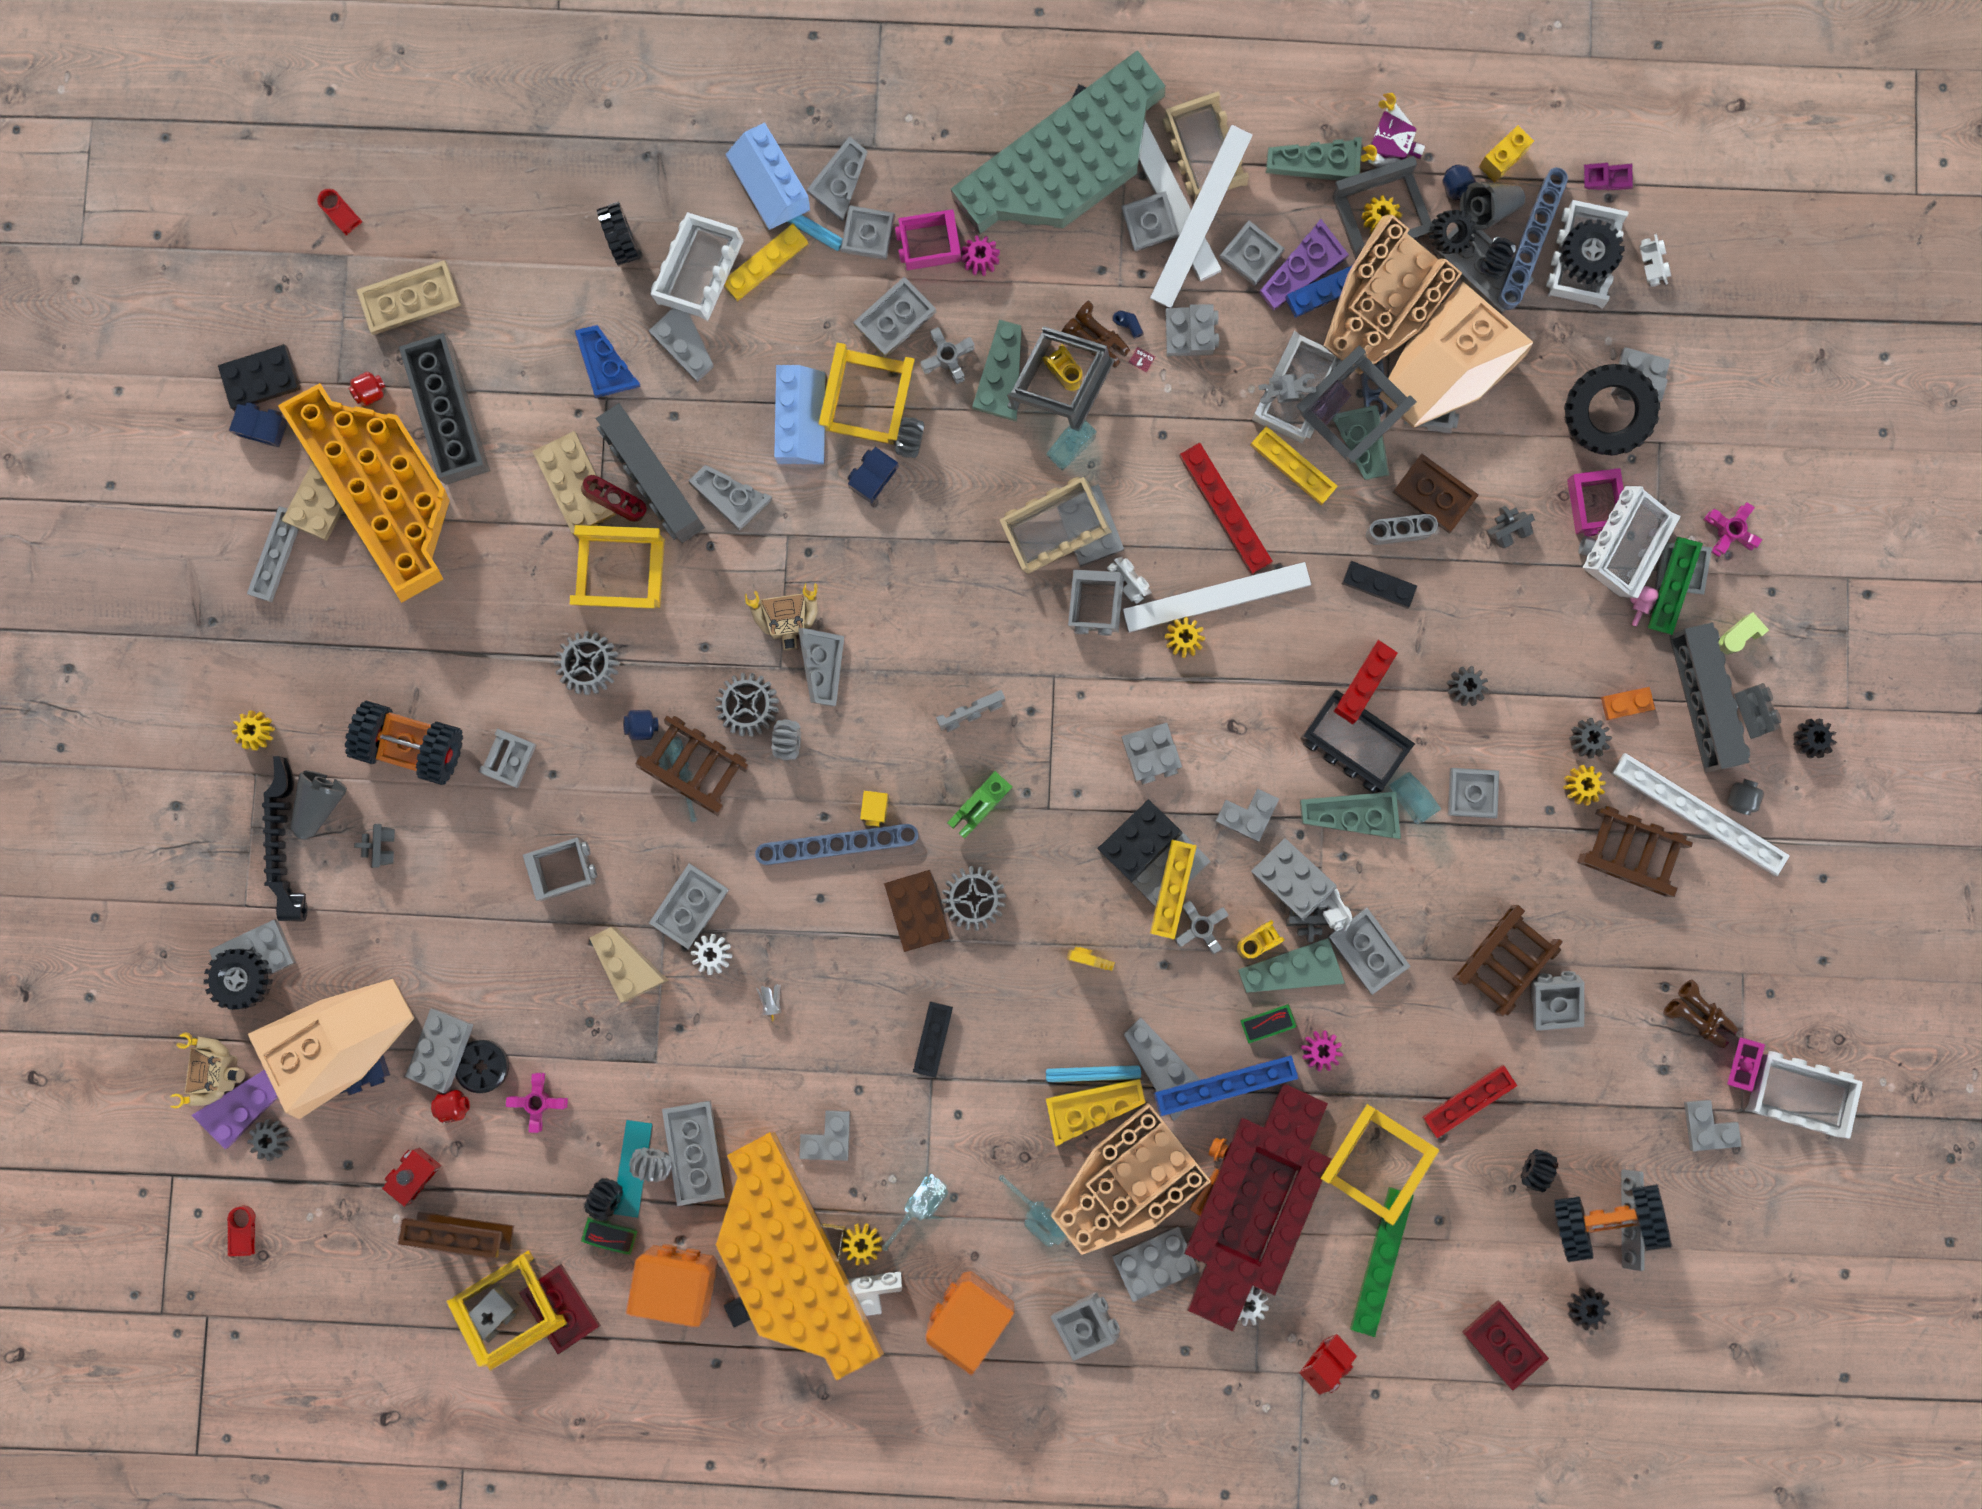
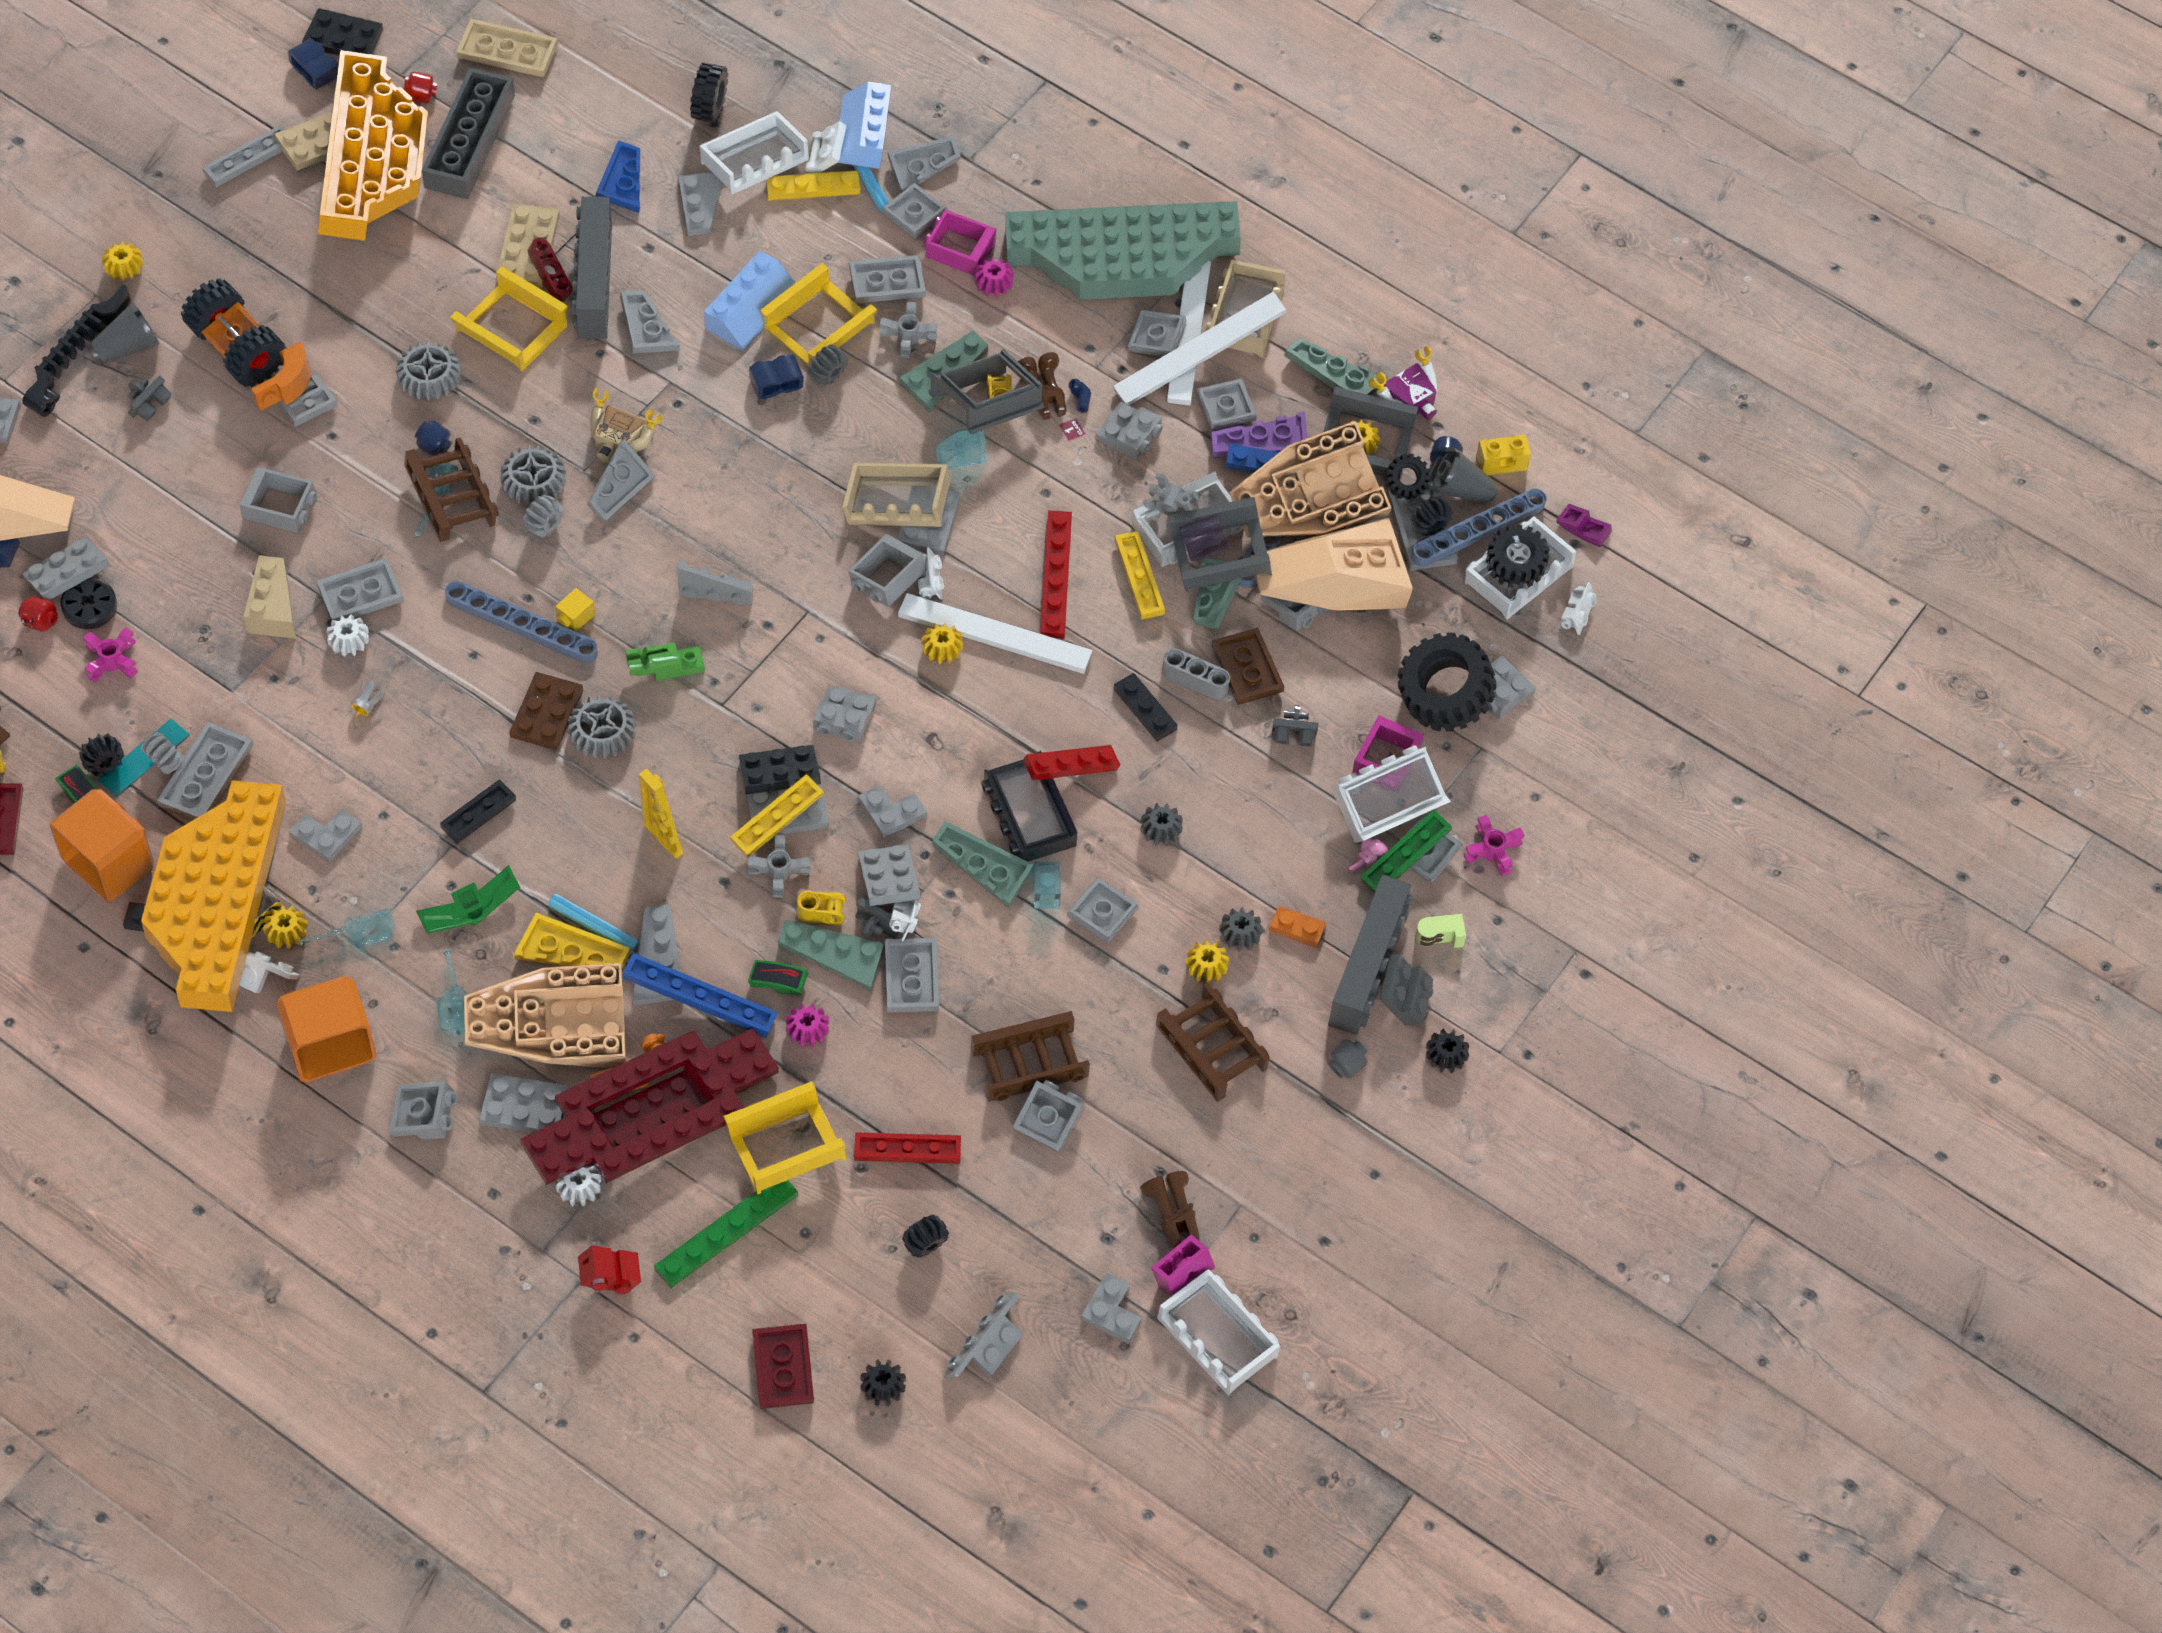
camera: 25 degrees right, 25 degrees down
(486, 754) = (288, 382): none -> orange arch
(757, 218) = (826, 148): none -> white plate
(988, 1125) = (470, 904): none -> green plate
(1575, 1225) = (927, 1295): black plate -> none
(1700, 814) = (1297, 1053): white tile -> none

